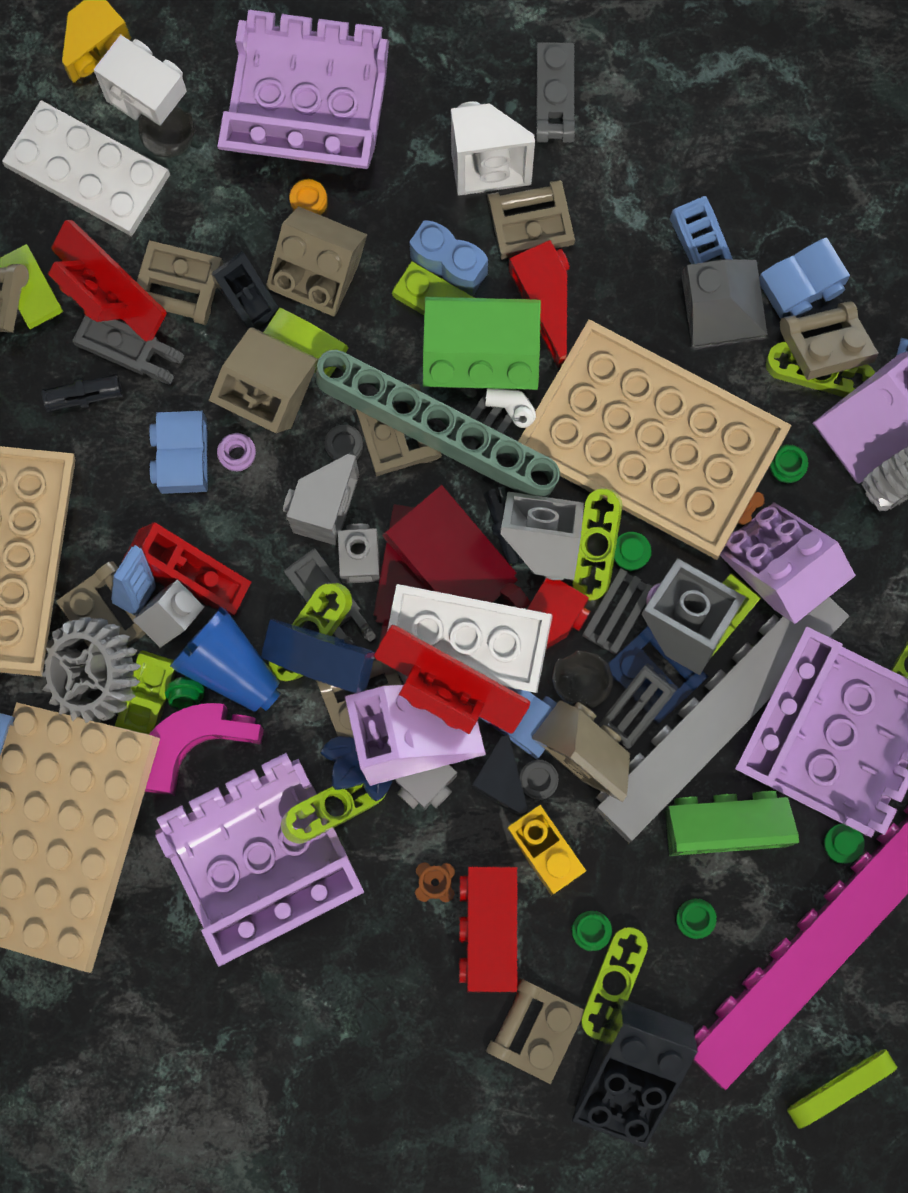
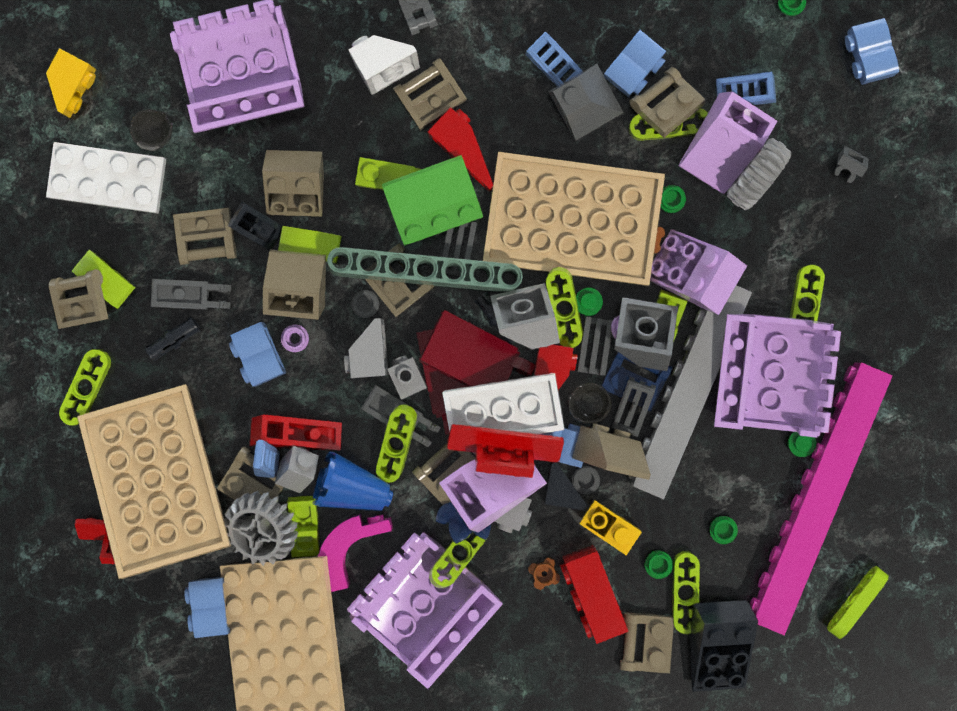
camera: 25 degrees left, 10 degrees up
(101, 284) = (152, 260): red bracket -> none
(139, 81) = (119, 106): white brick -> none
(184, 693) = (329, 517): green plate -> none
(308, 195) = (269, 138): light orange tile -> none
(318, 656) = (409, 461): dark blue slope -> none
(444, 256) = (376, 145): medium blue brick -> none
(515, 404) = (472, 232): white arm -> none
(730, 824) = (724, 463): bright green slope -> none

